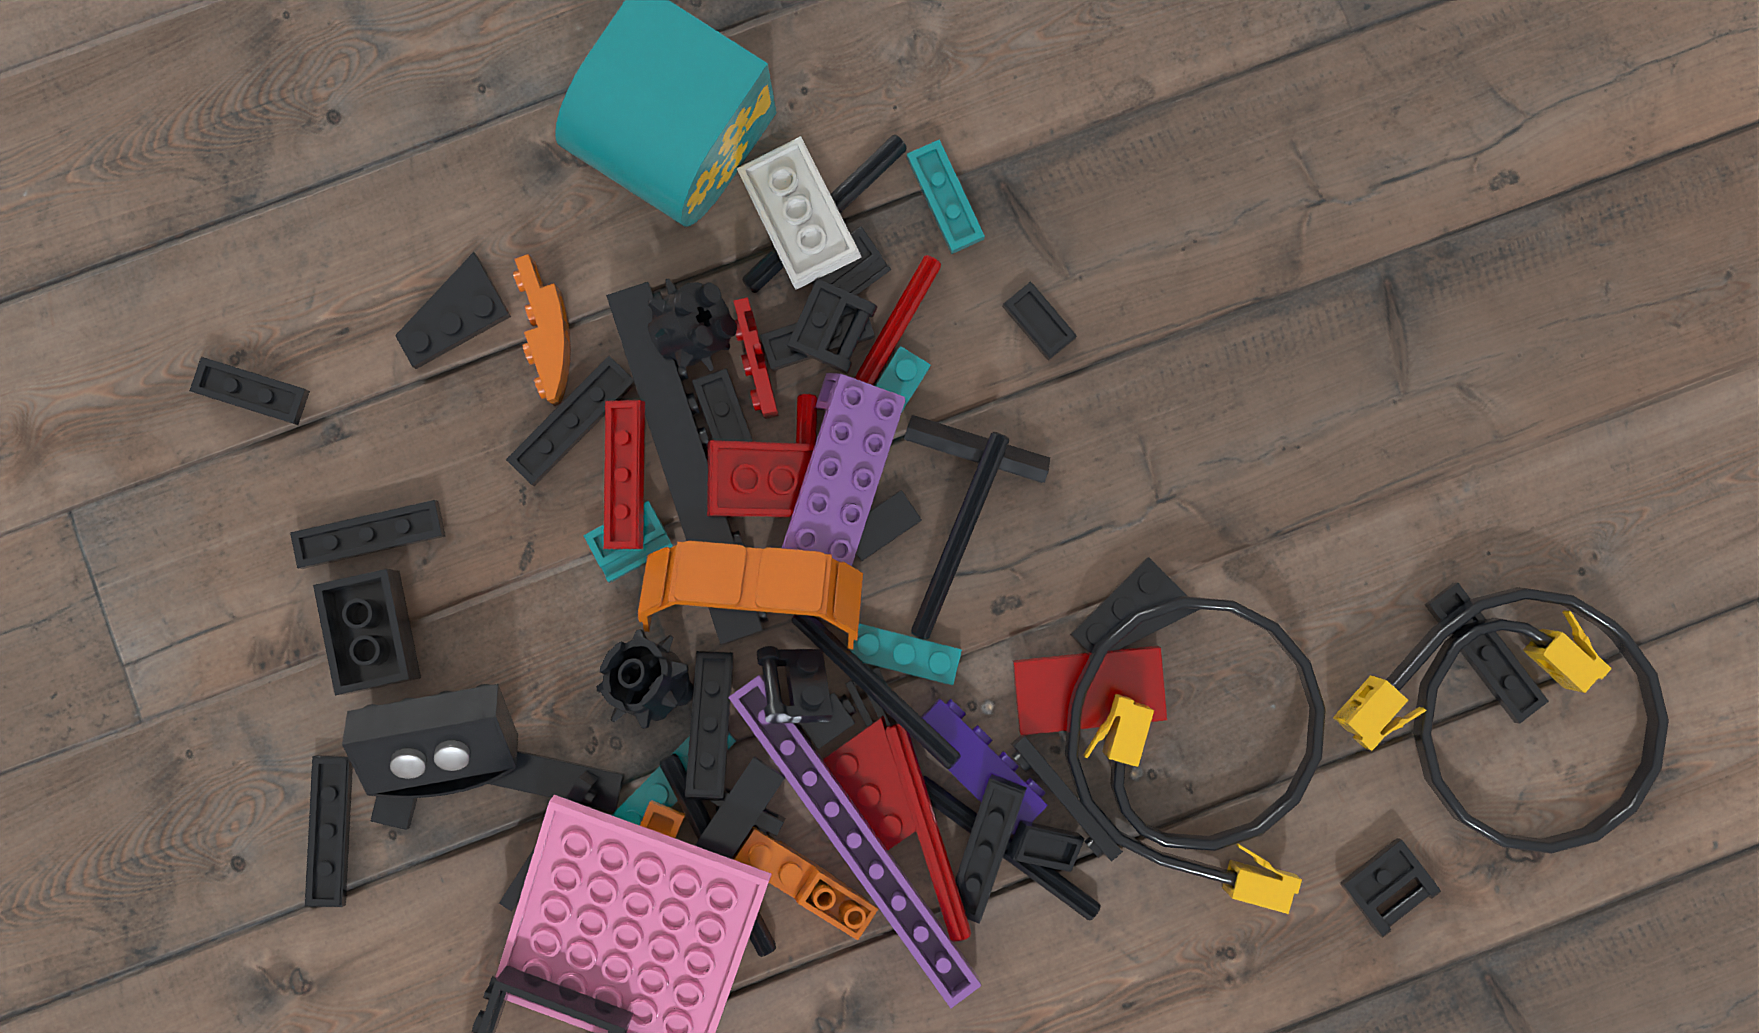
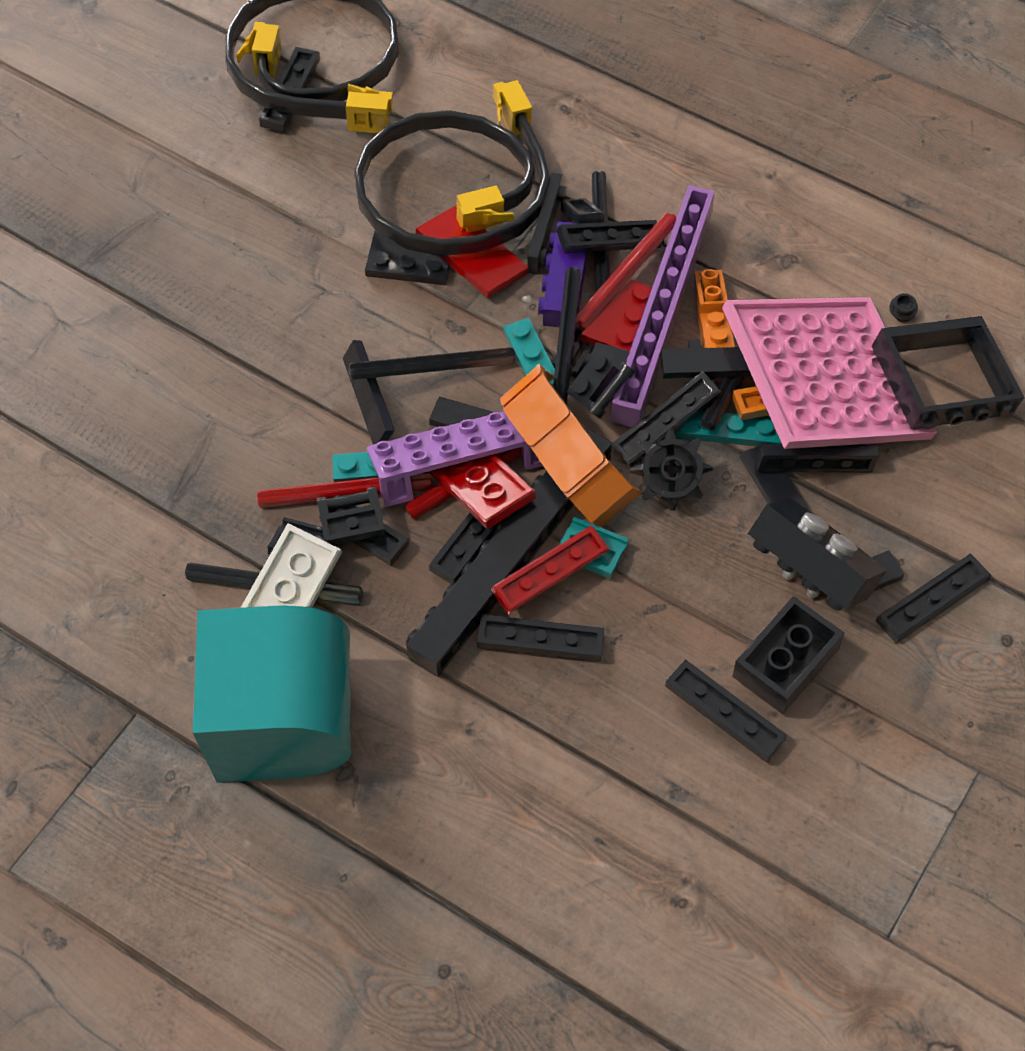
camera: 120 degrees left, 25 degrees down
(249, 391) = (695, 866): black plate -> none
(453, 315) = (526, 768): black wing -> none
(549, 342) = (496, 687): orange slope -> none
(691, 323) = (414, 595): black brick -> none
(754, 360) = (391, 566): red wing -> none
(945, 196) = (208, 518): teal plate -> none
(1039, 321) = (255, 417): black tile -> none
(1382, 878) = (461, 59): black plate -> none

